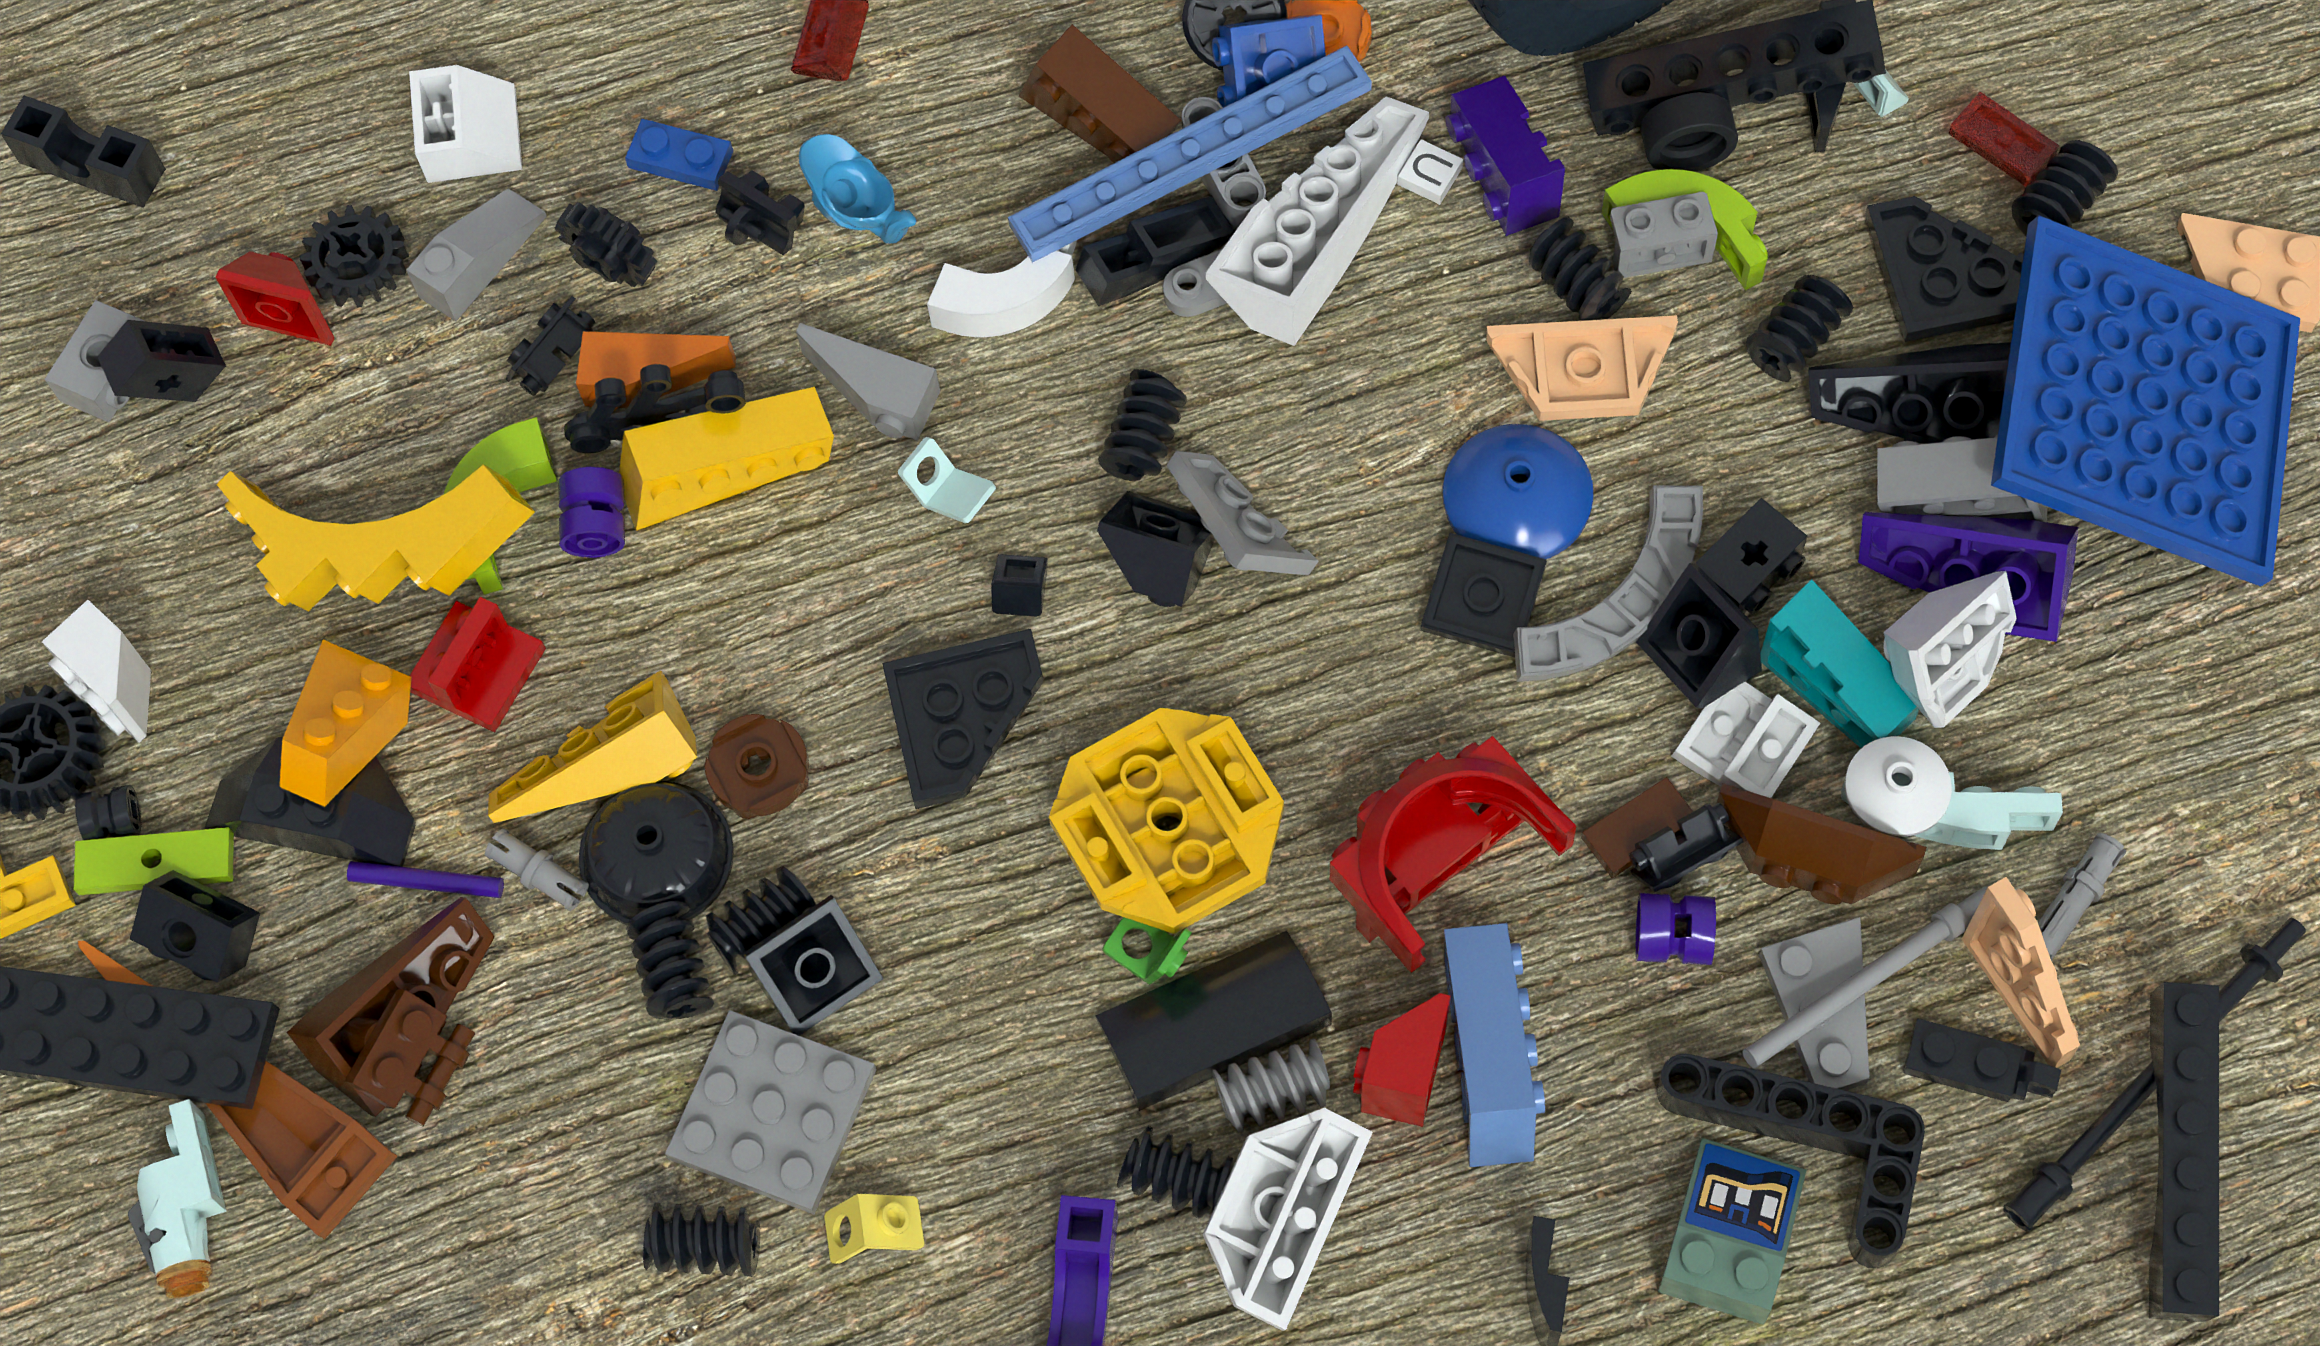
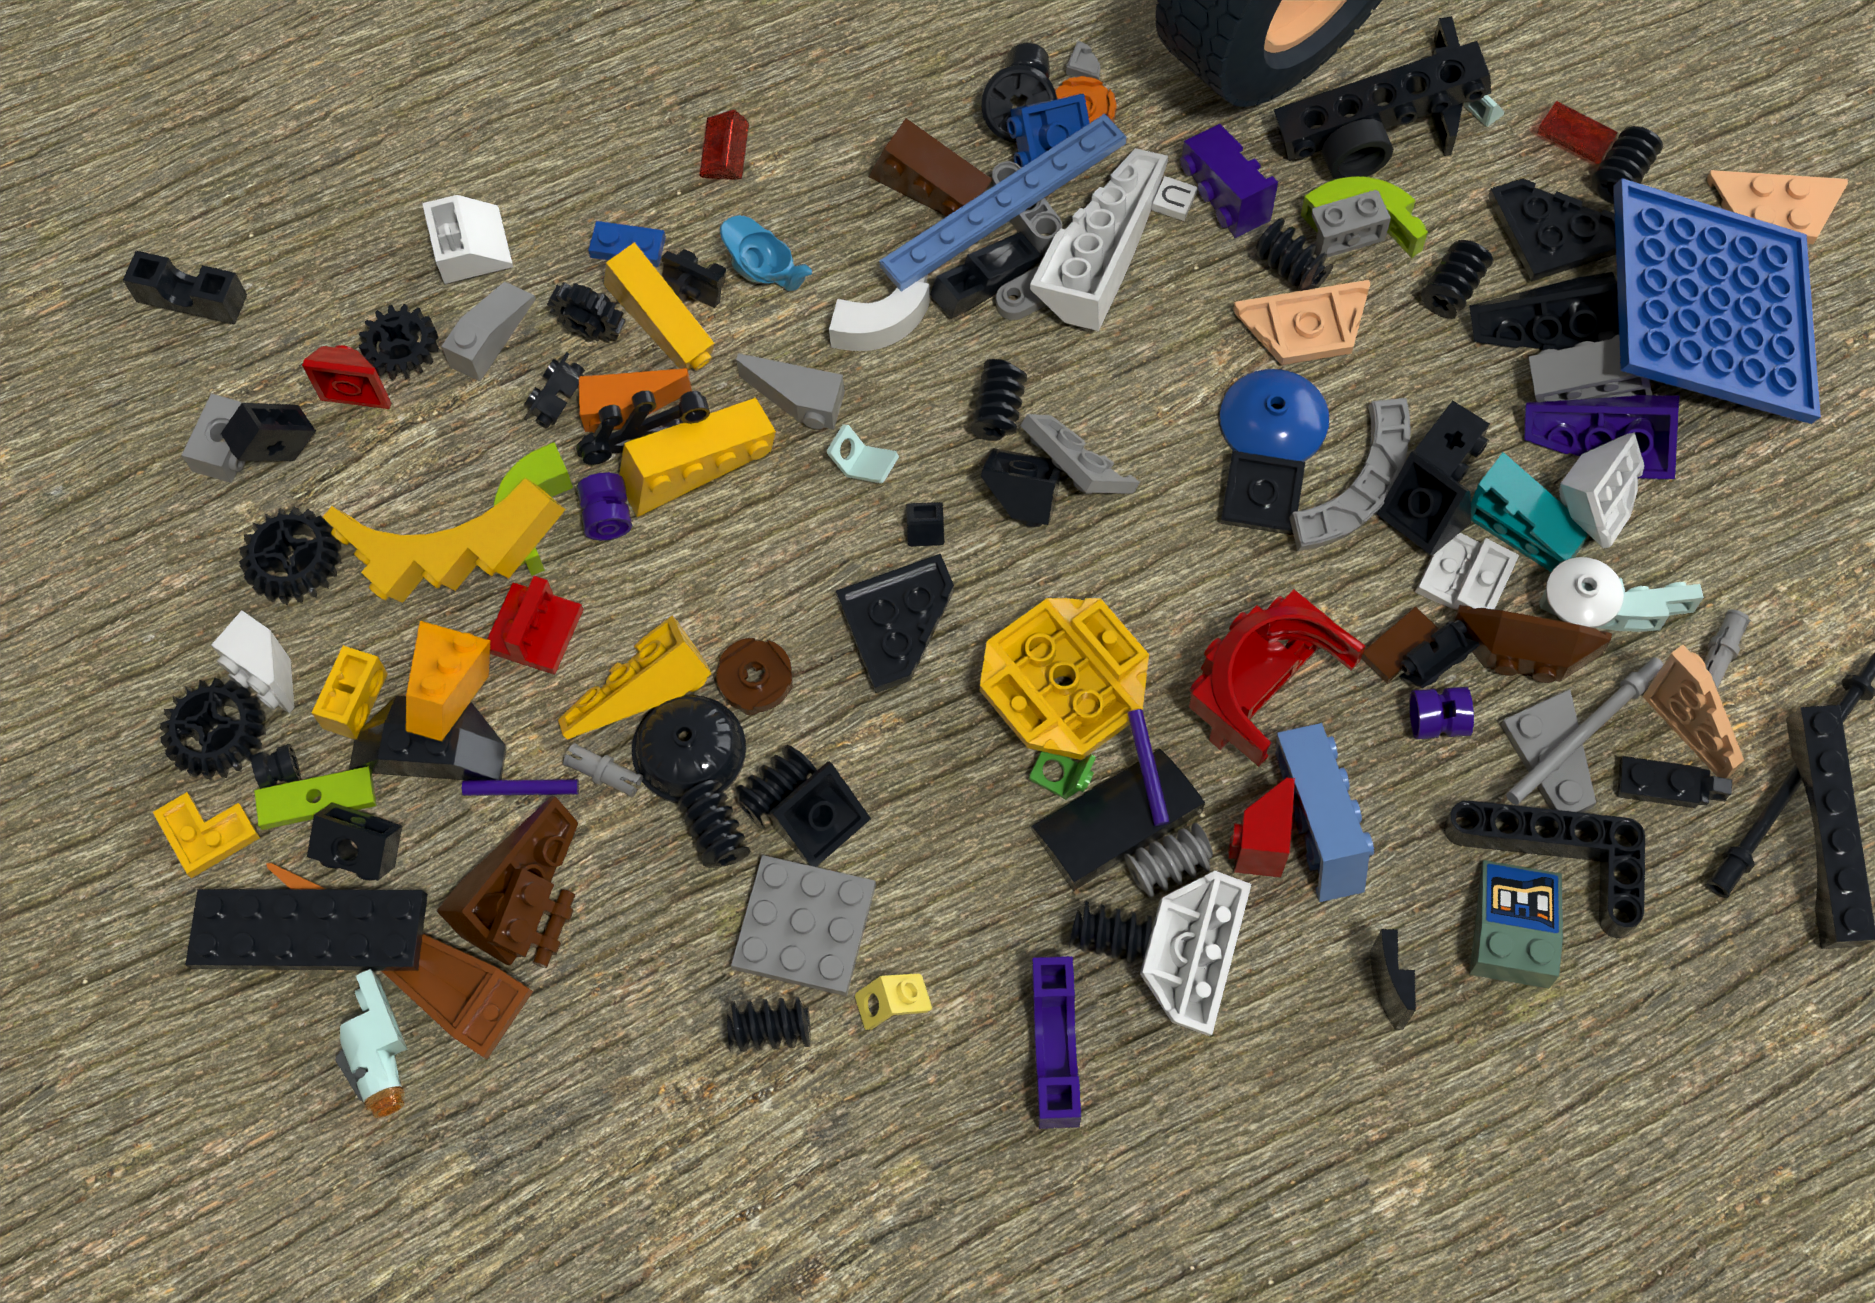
camera: 10 degrees left, 0 degrees up
(148, 515) = (272, 545): none -> black gear
(218, 725) = (349, 692): none -> yellow brick
(703, 250) = (657, 308): none -> yellow slope
(1260, 955) = (1148, 767): none -> dark purple bar

